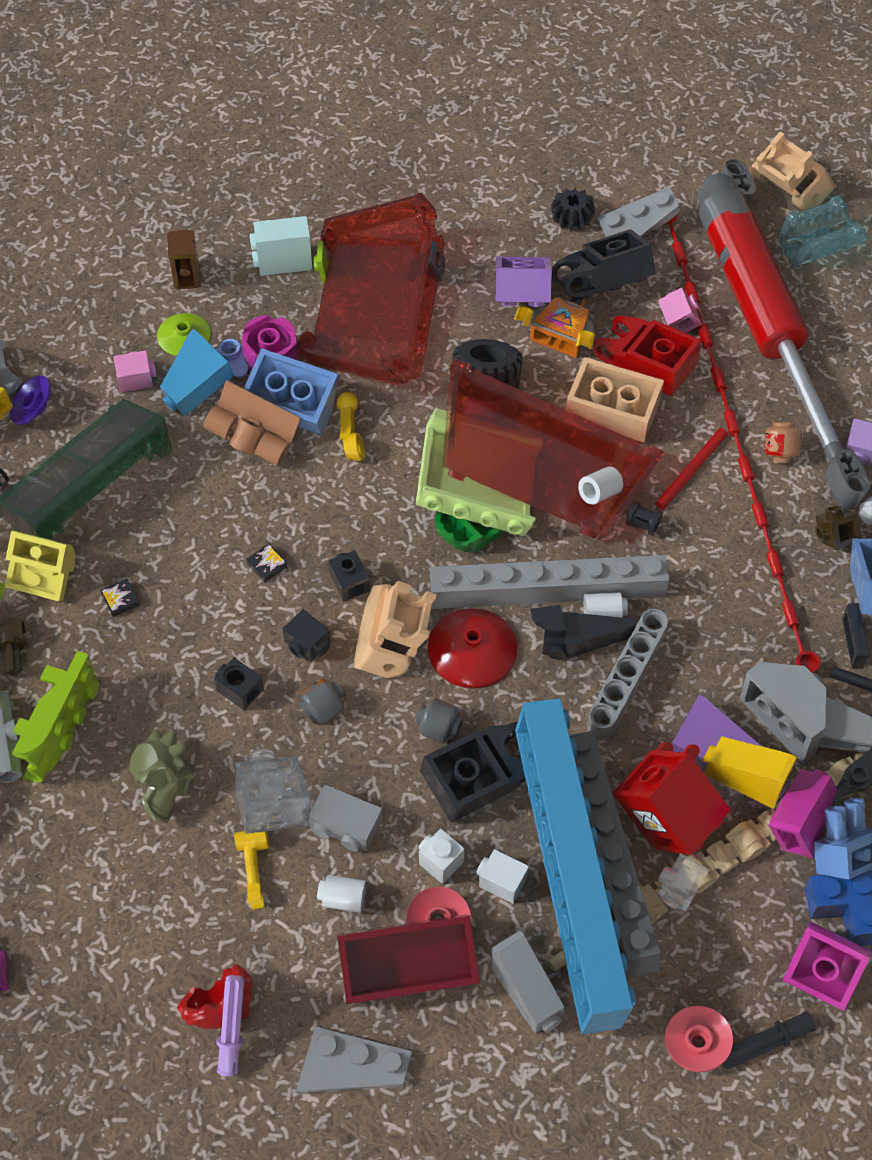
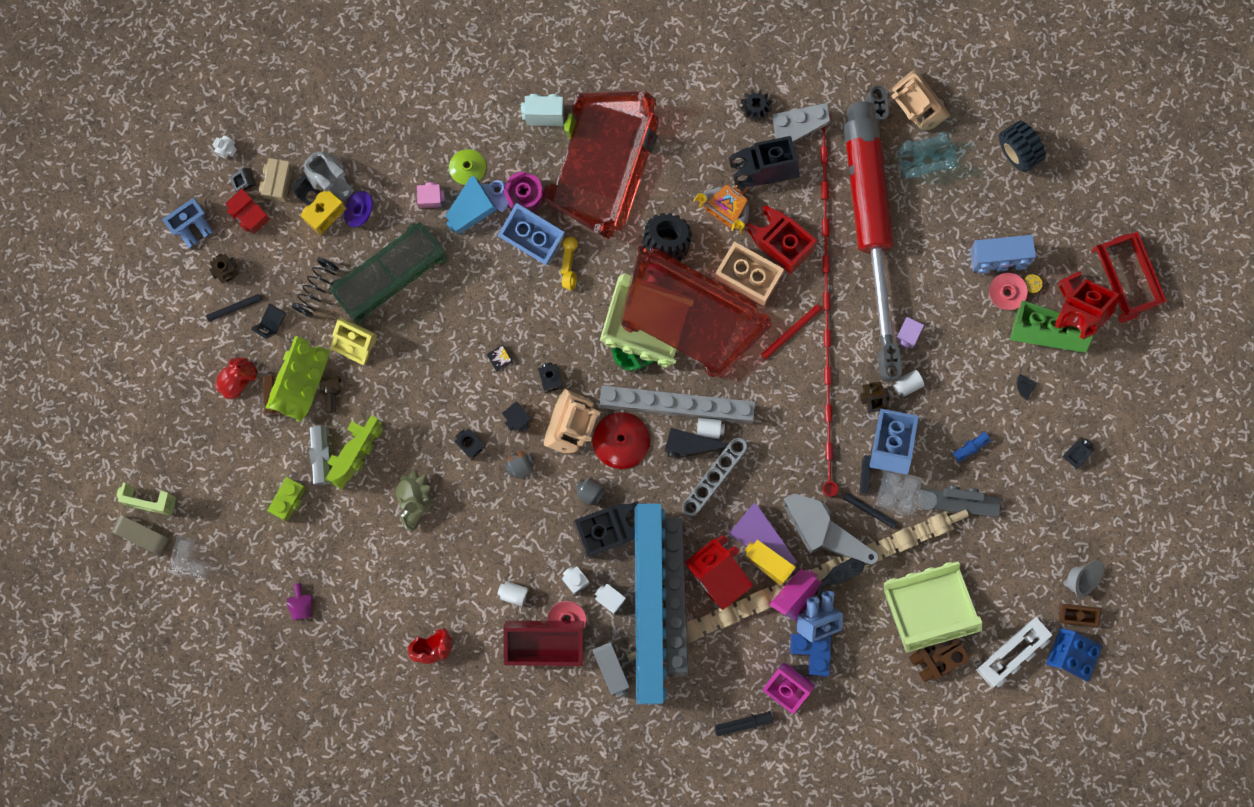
camera: 15 degrees right, 20 degrees up
(120, 597) = (402, 368): tile -> none
(183, 259) = (474, 111): reddish brown brick -> none
(230, 1040) = (434, 673): lavender axle -> none
(251, 844) = (463, 550): yellow brick -> none
(252, 423) = (503, 255): nougat panel -> none
(271, 792) = (478, 523): clear brick -> none
(345, 819) = (522, 546): light grey brick -> none
(349, 1062) = (502, 695): light grey wing -> none
(523, 280) = (705, 170): medium lavender brick -> none
(549, 619) = (670, 436): black tile -> none
(600, 485) = (724, 342): white brick -> none
(644, 518) = (750, 366): black bush -> none
(680, 310) = (811, 208): bright pink brick -> none
(681, 882) = (713, 625): clear brick -> none
(703, 1024) = (698, 708): coral dish -> none
(782, 441) = (855, 324): nougat head -> none

